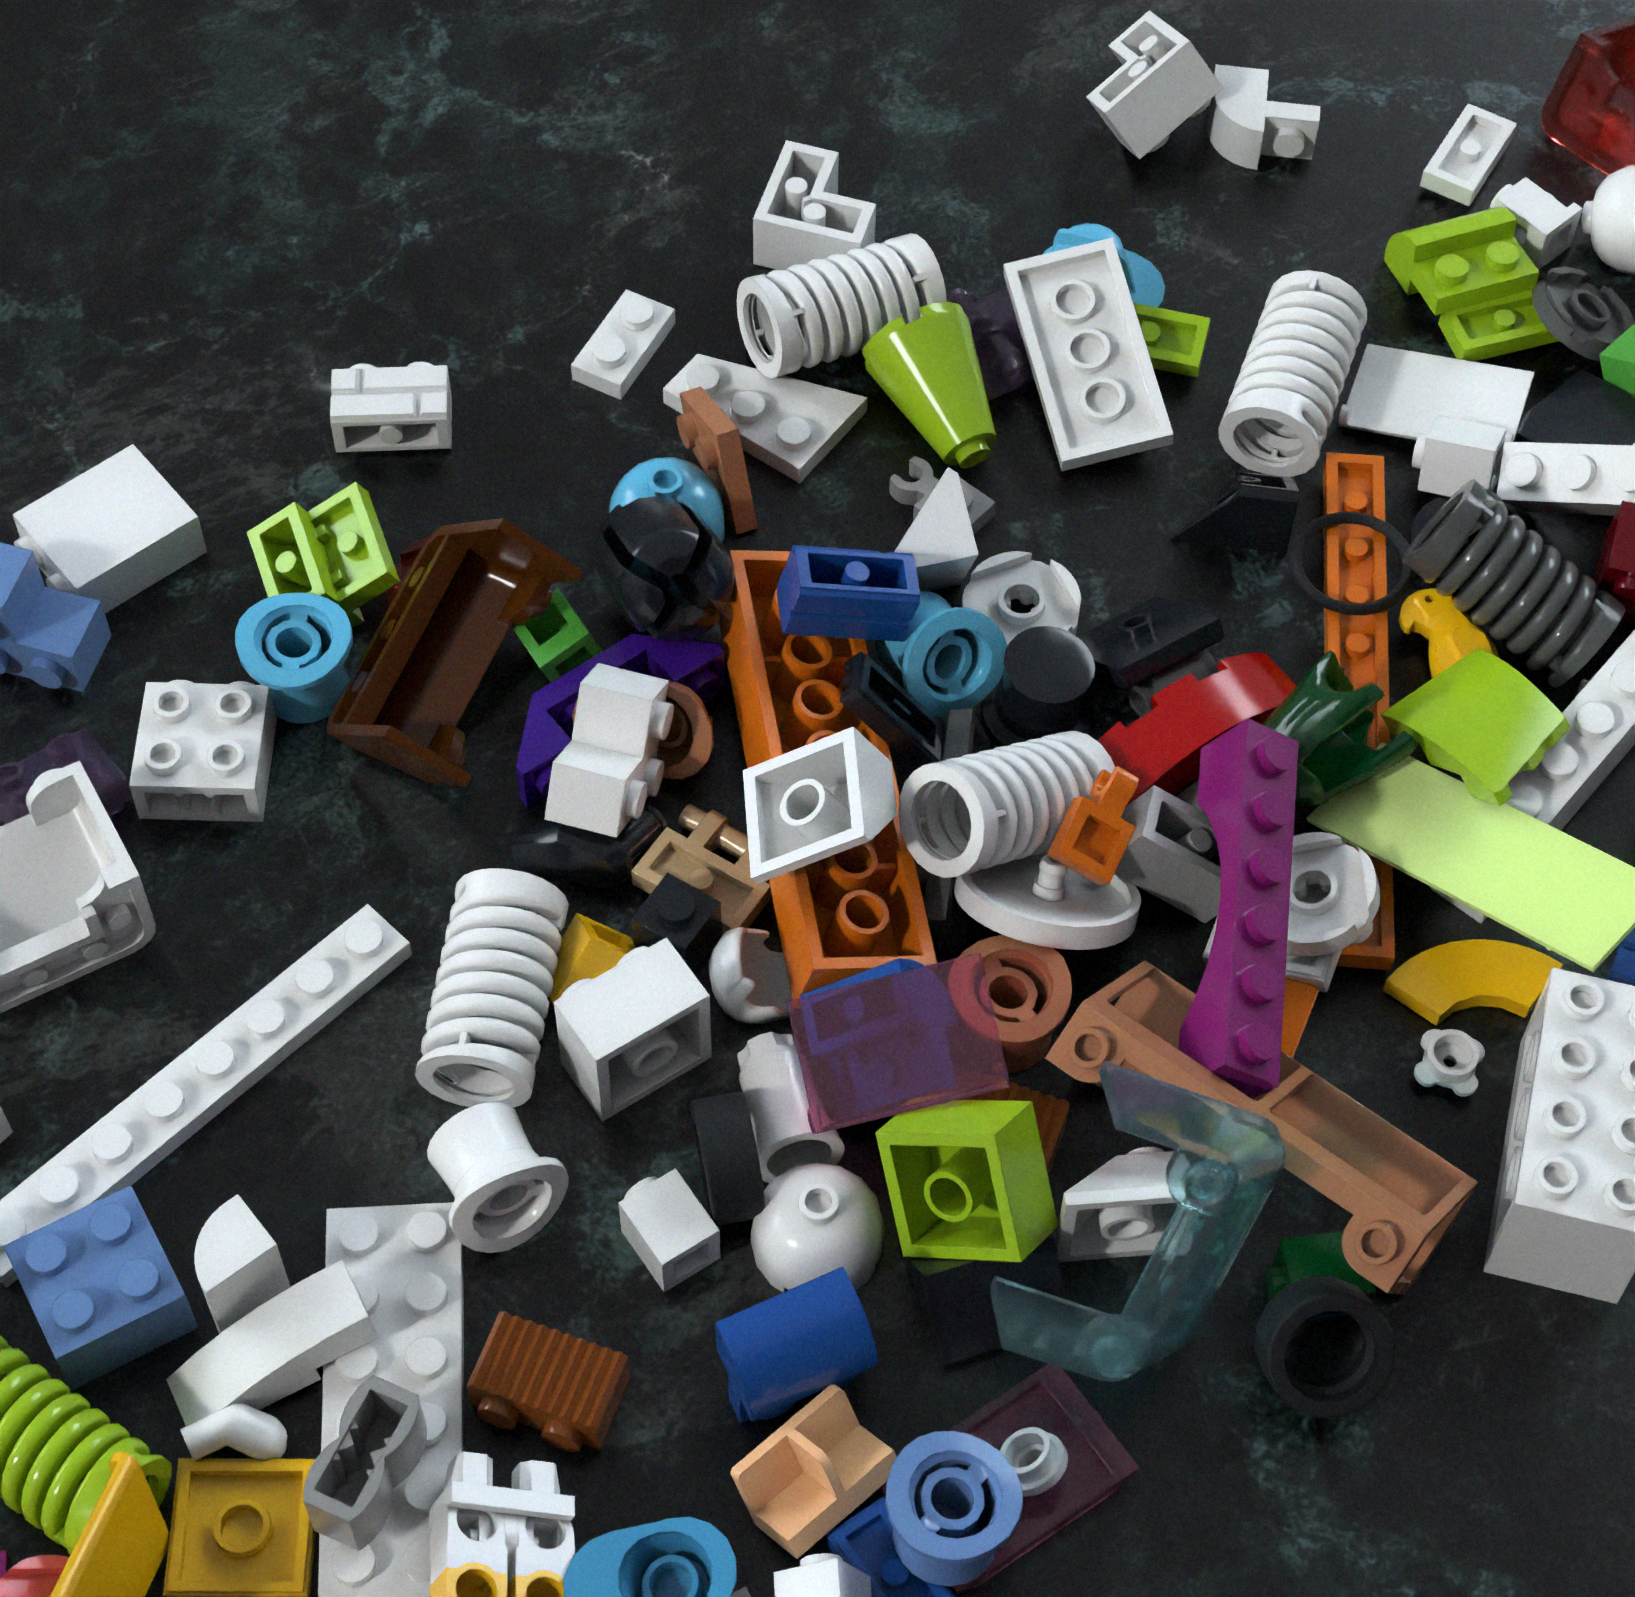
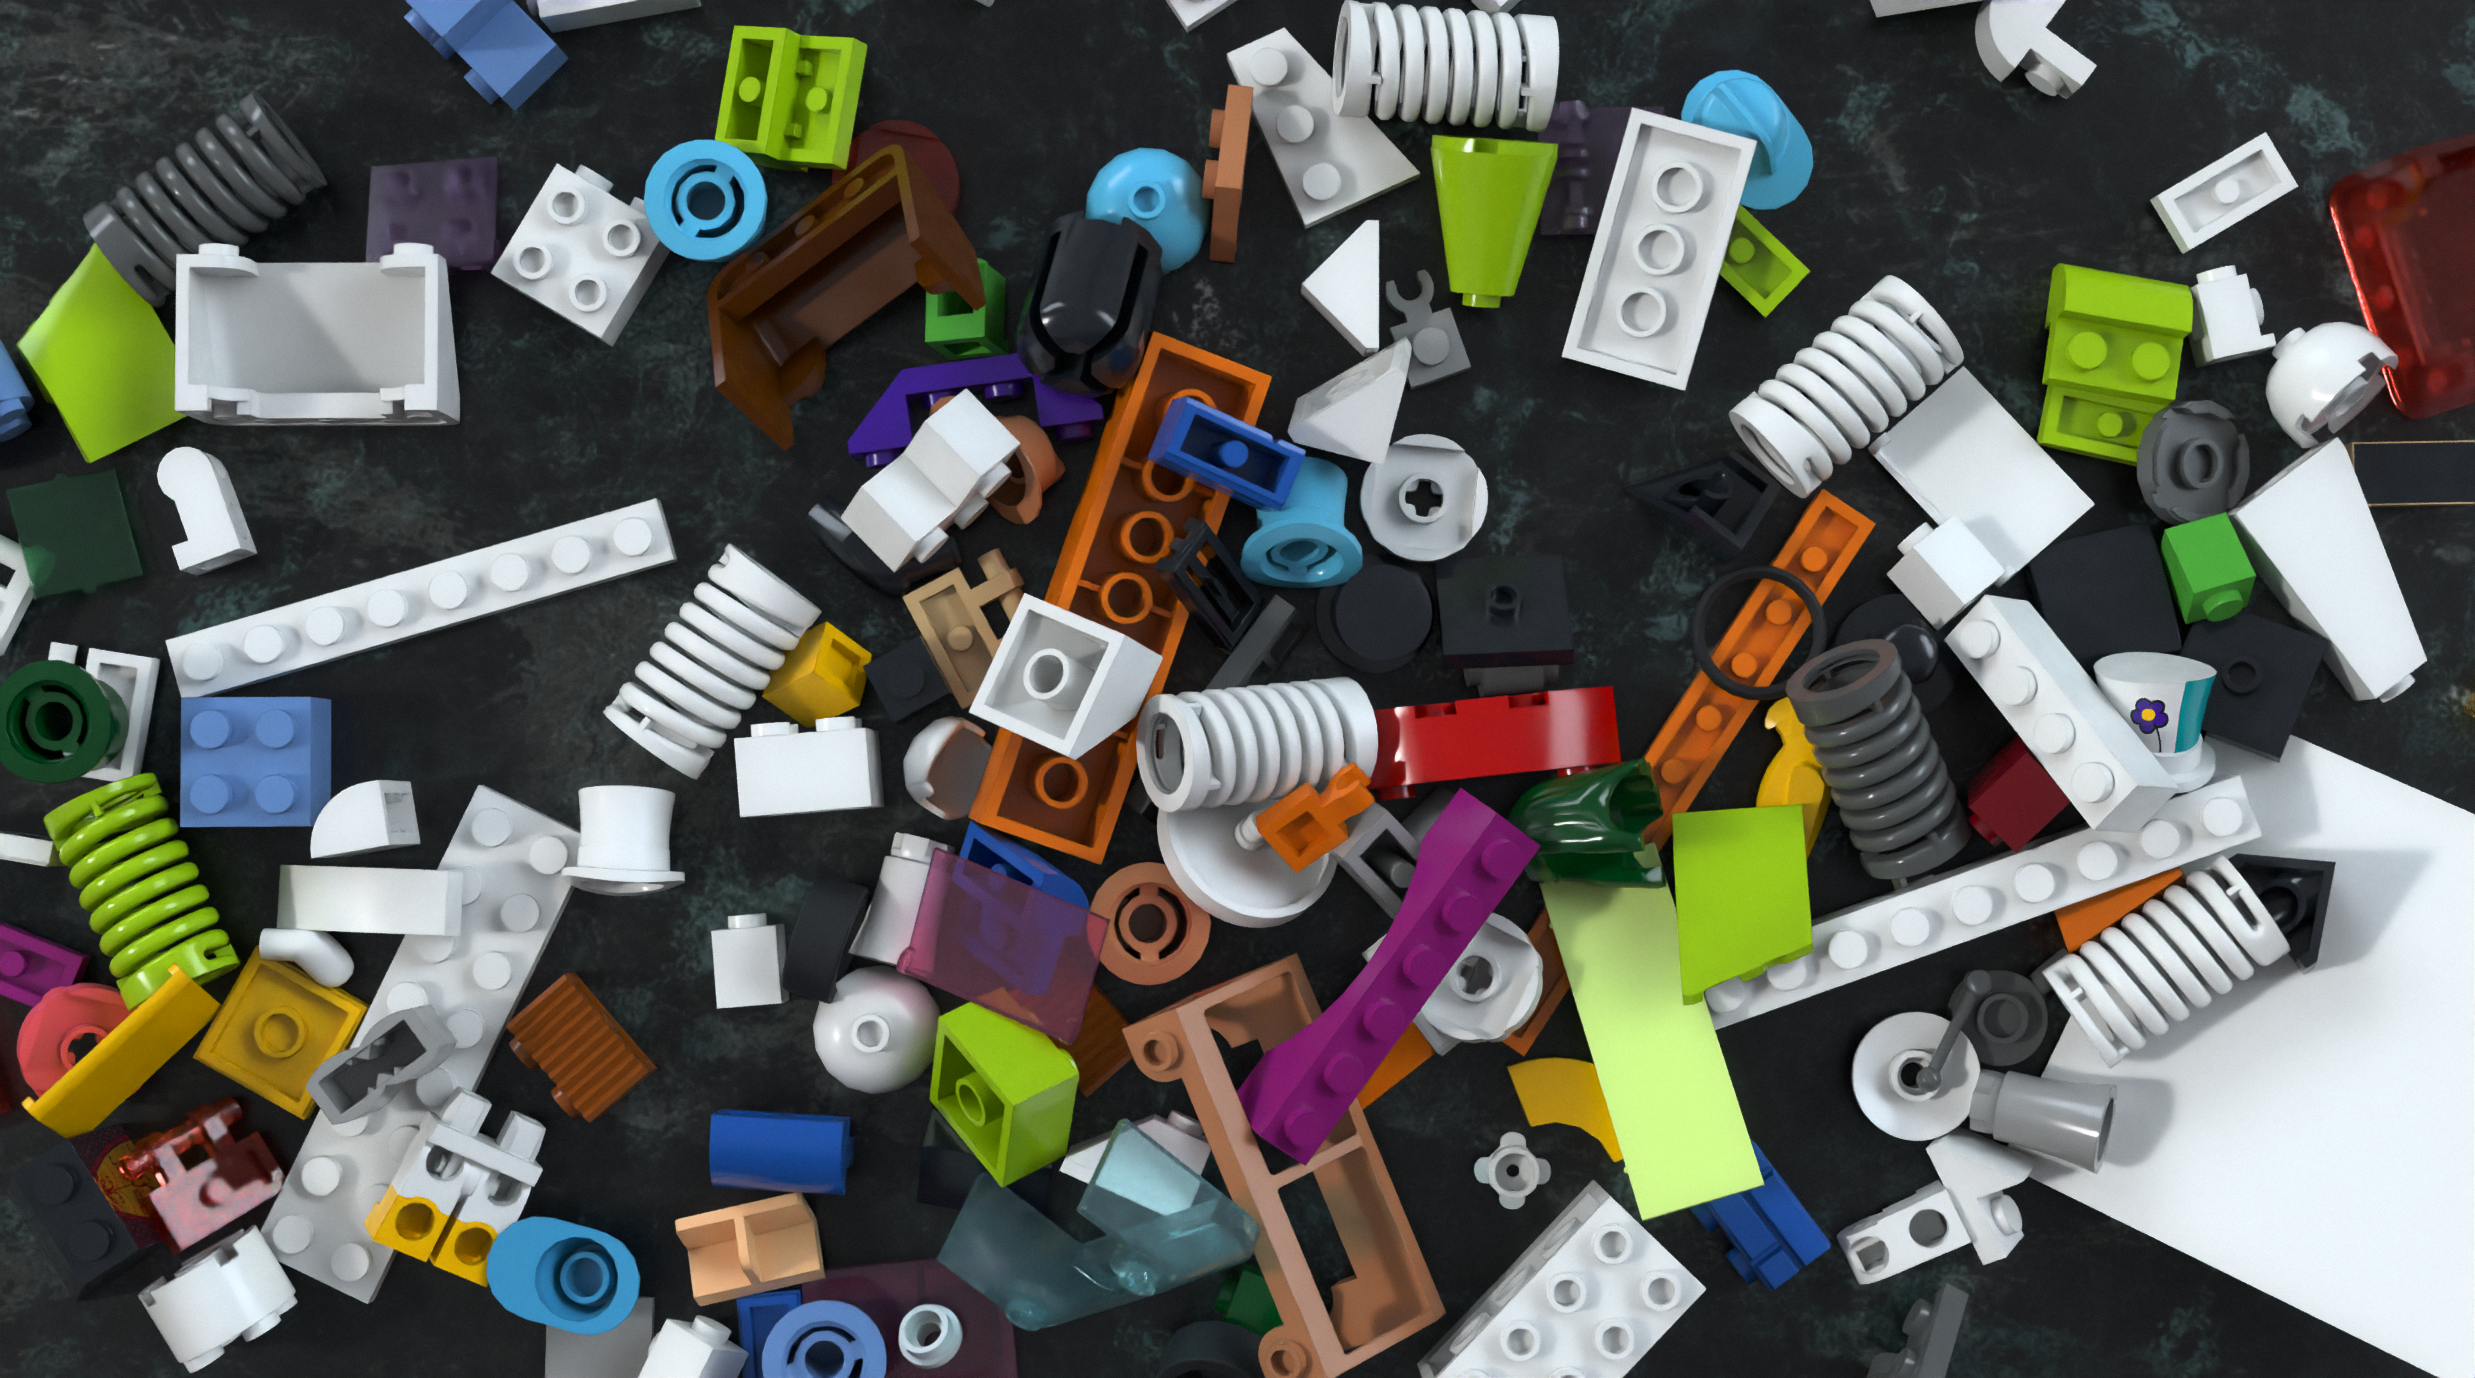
camera: 25 degrees right, 30 degrees up
(866, 494) = (1348, 289): none -> white slope

